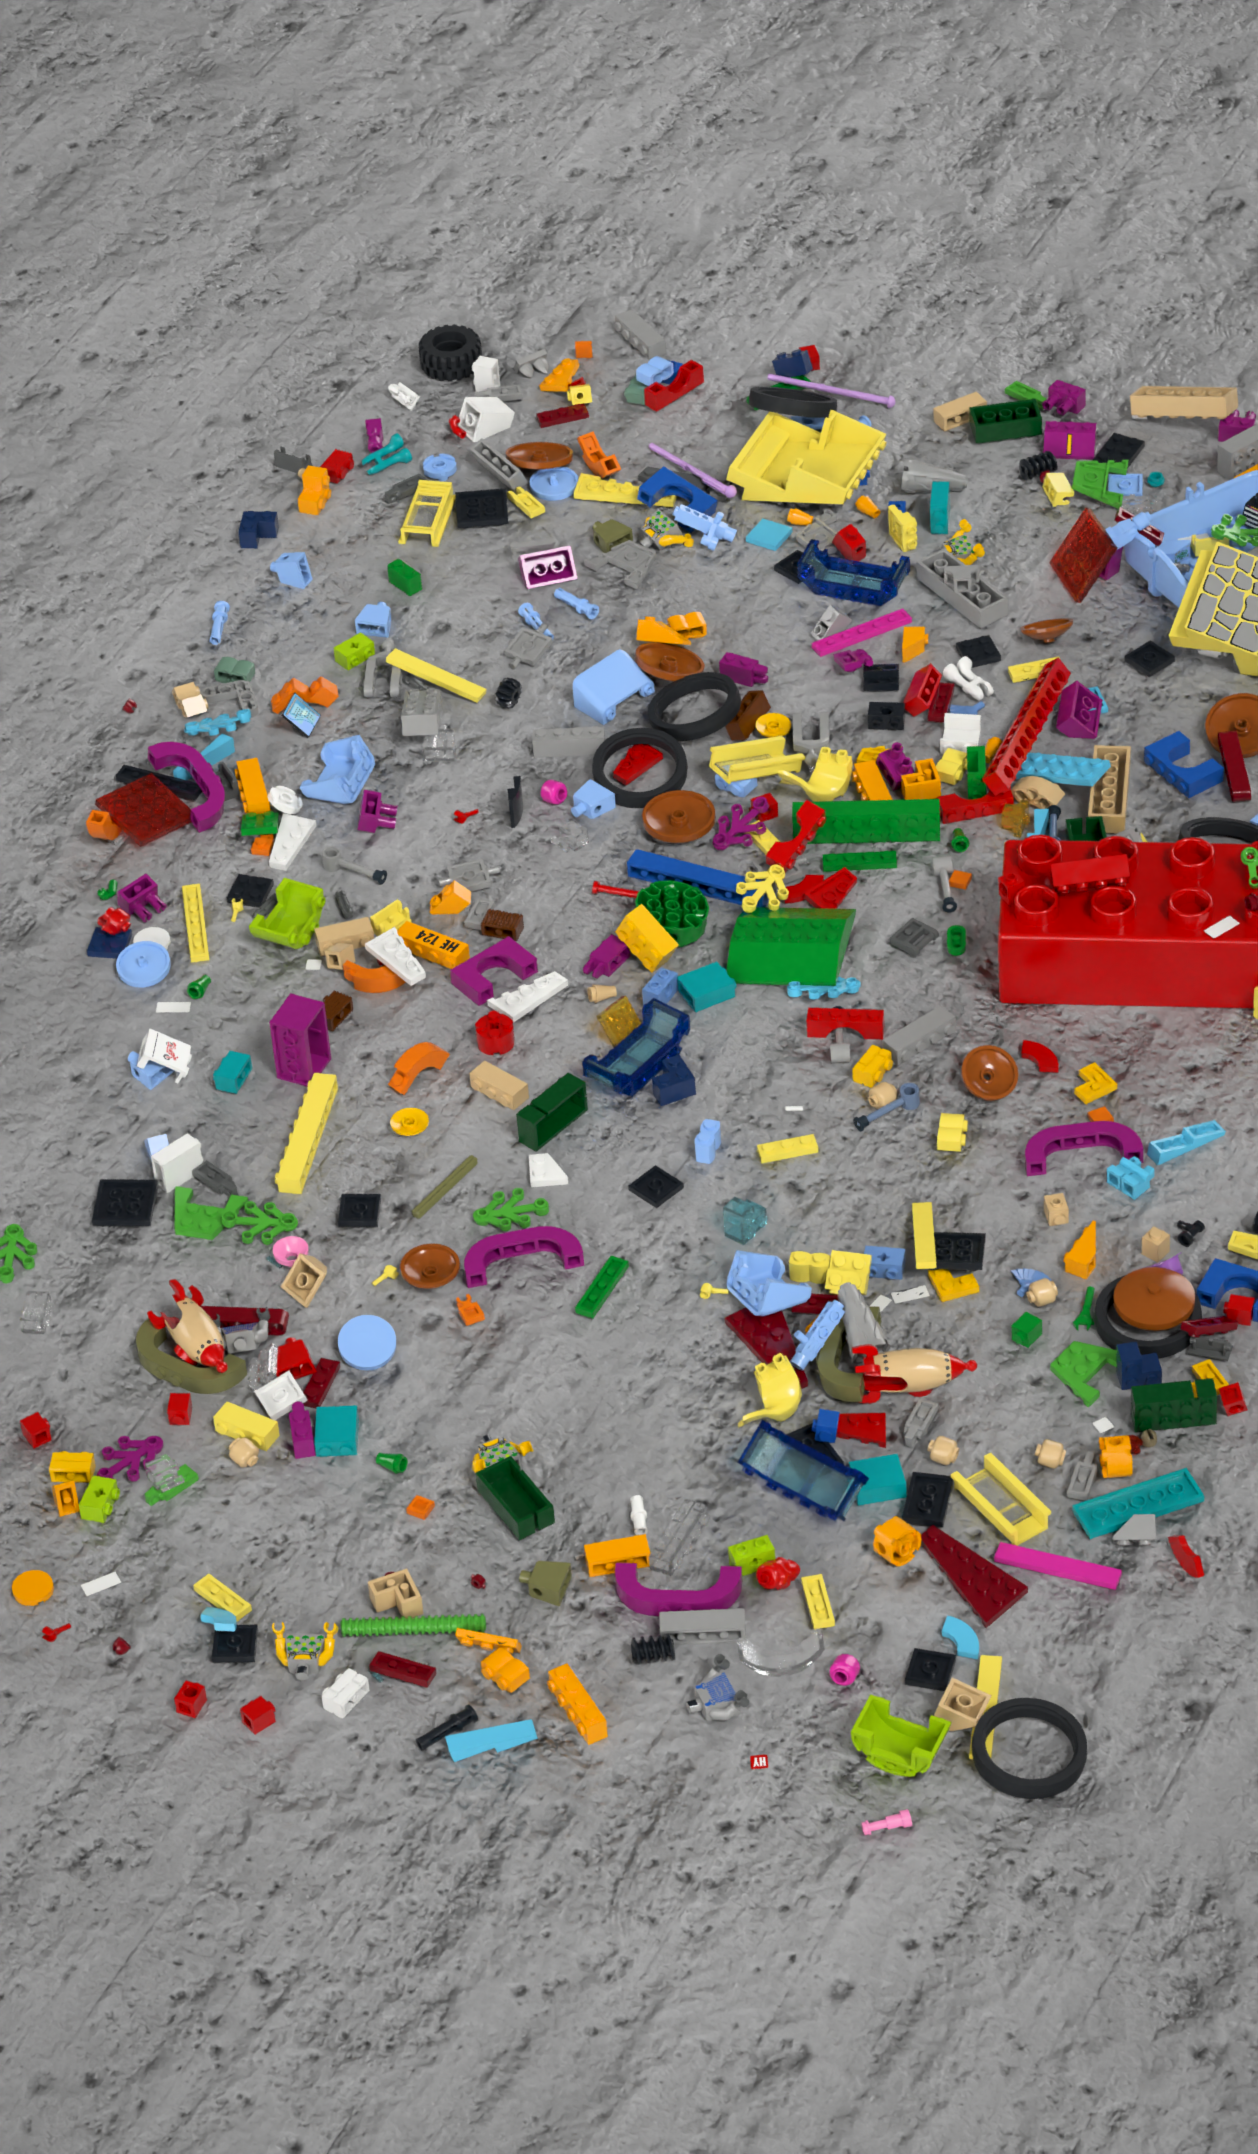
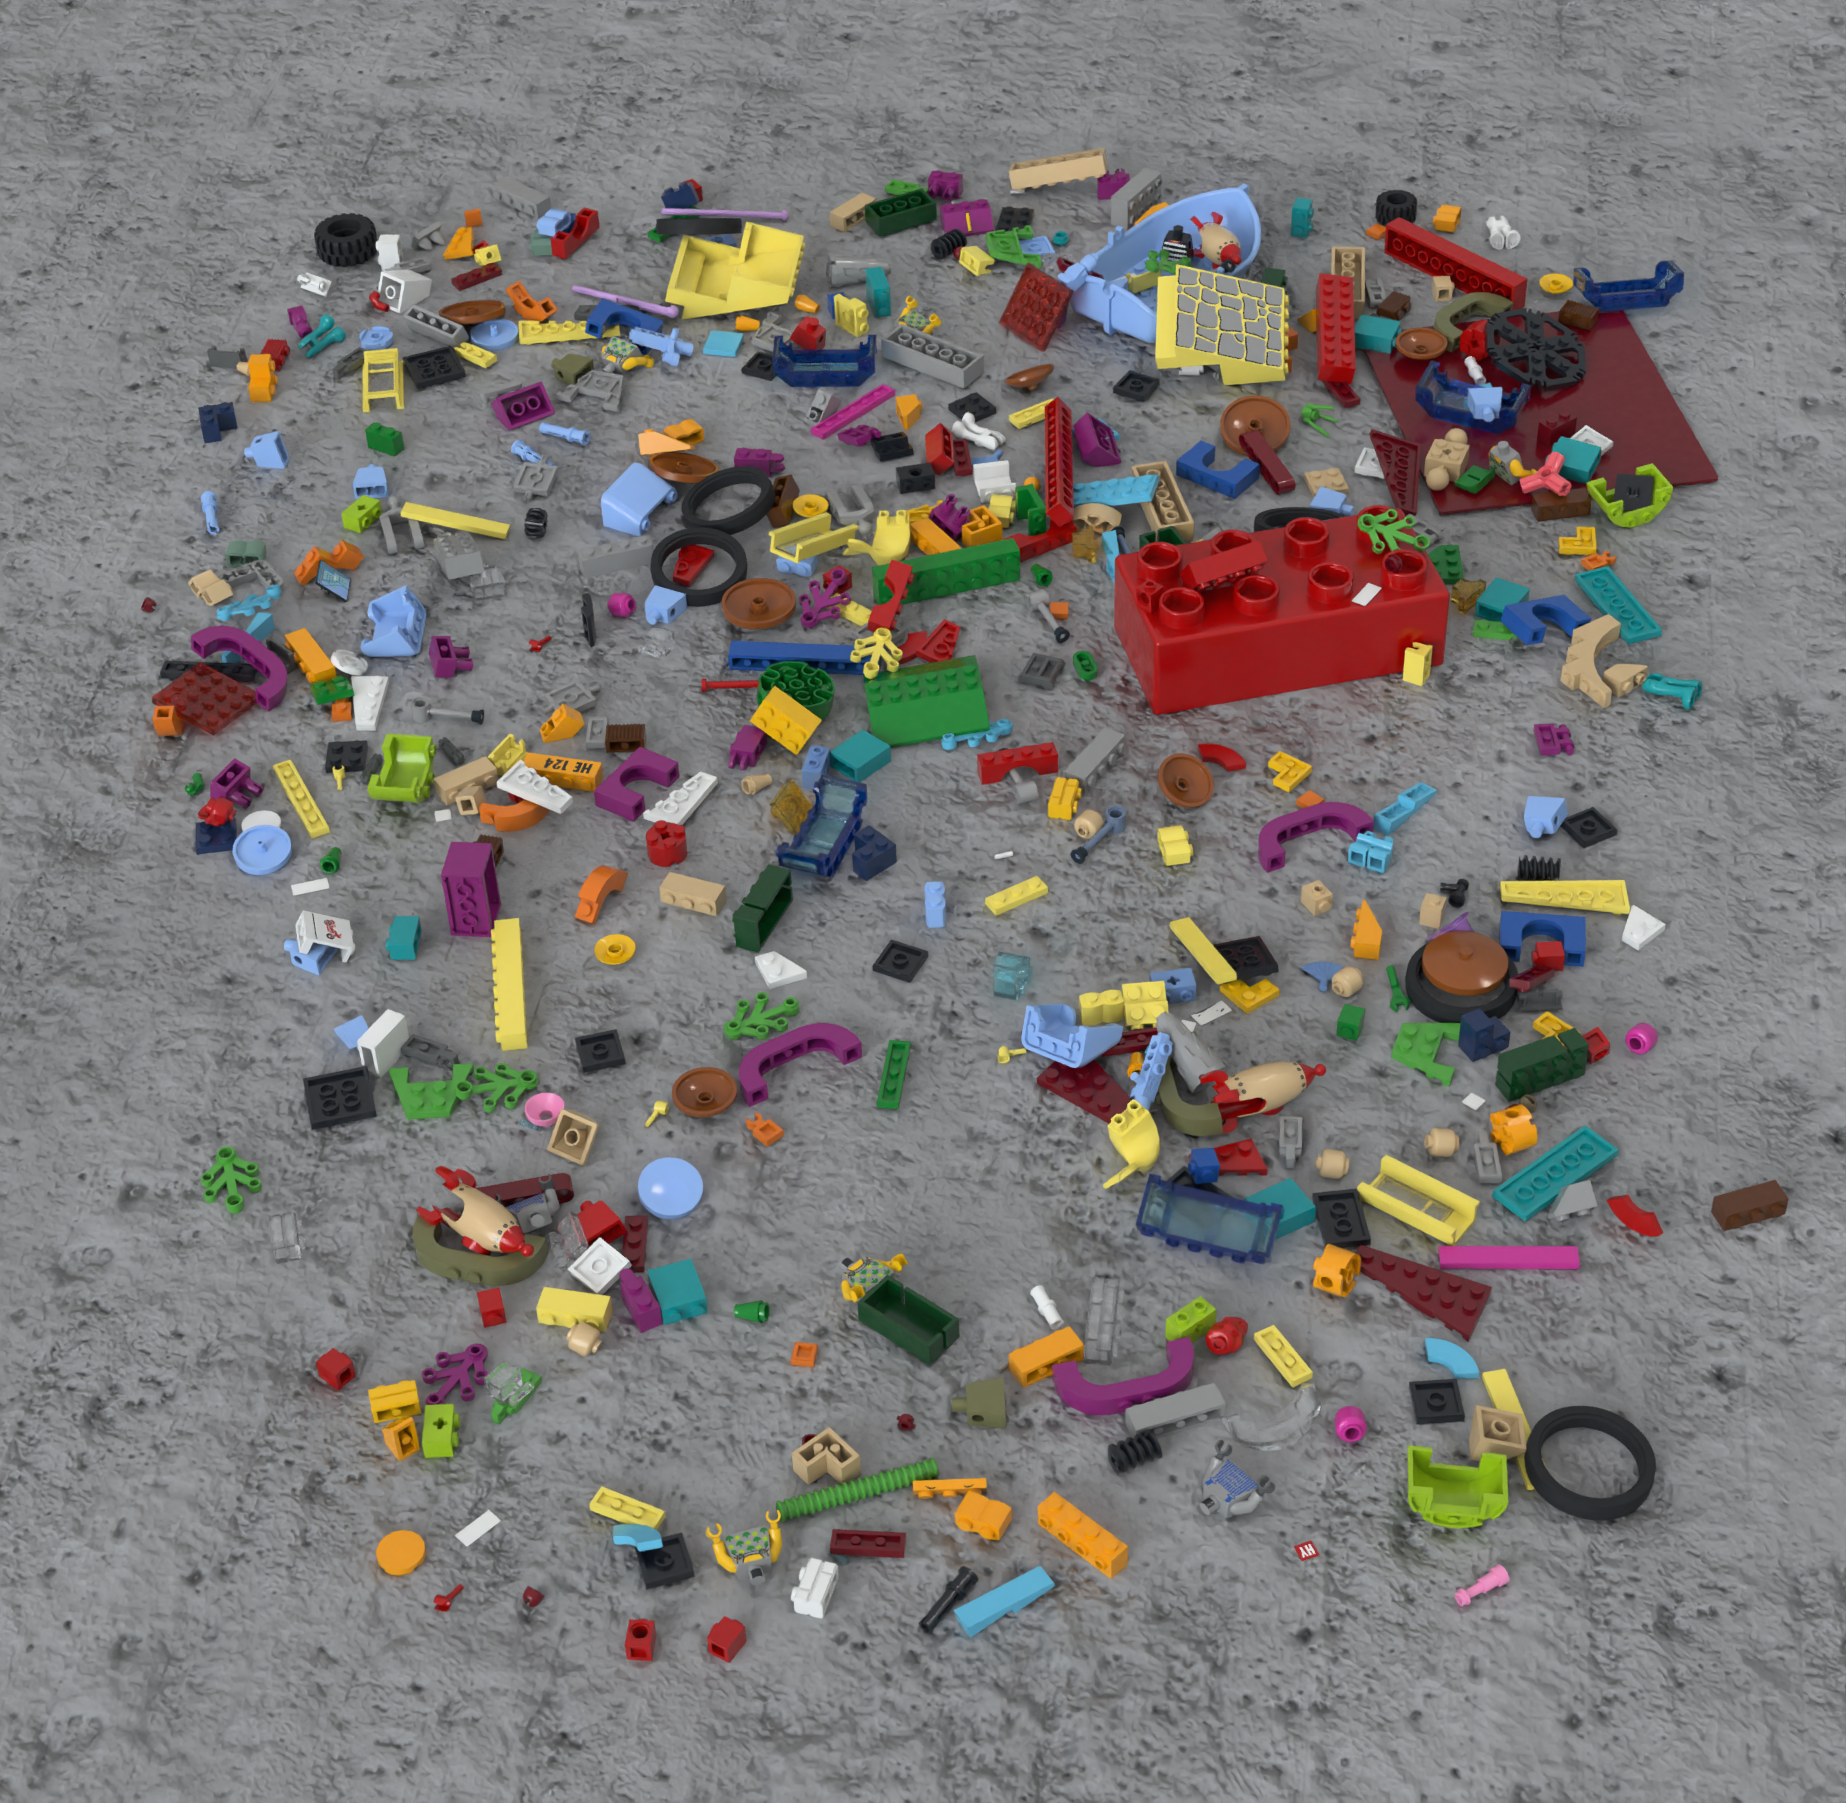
camera: 20 degrees left, 0 degrees up
(447, 1184) = (679, 1008): olive axle -> none
(860, 861) = (953, 612): green plate -> none
(961, 577) = (933, 343): light grey brick -> none

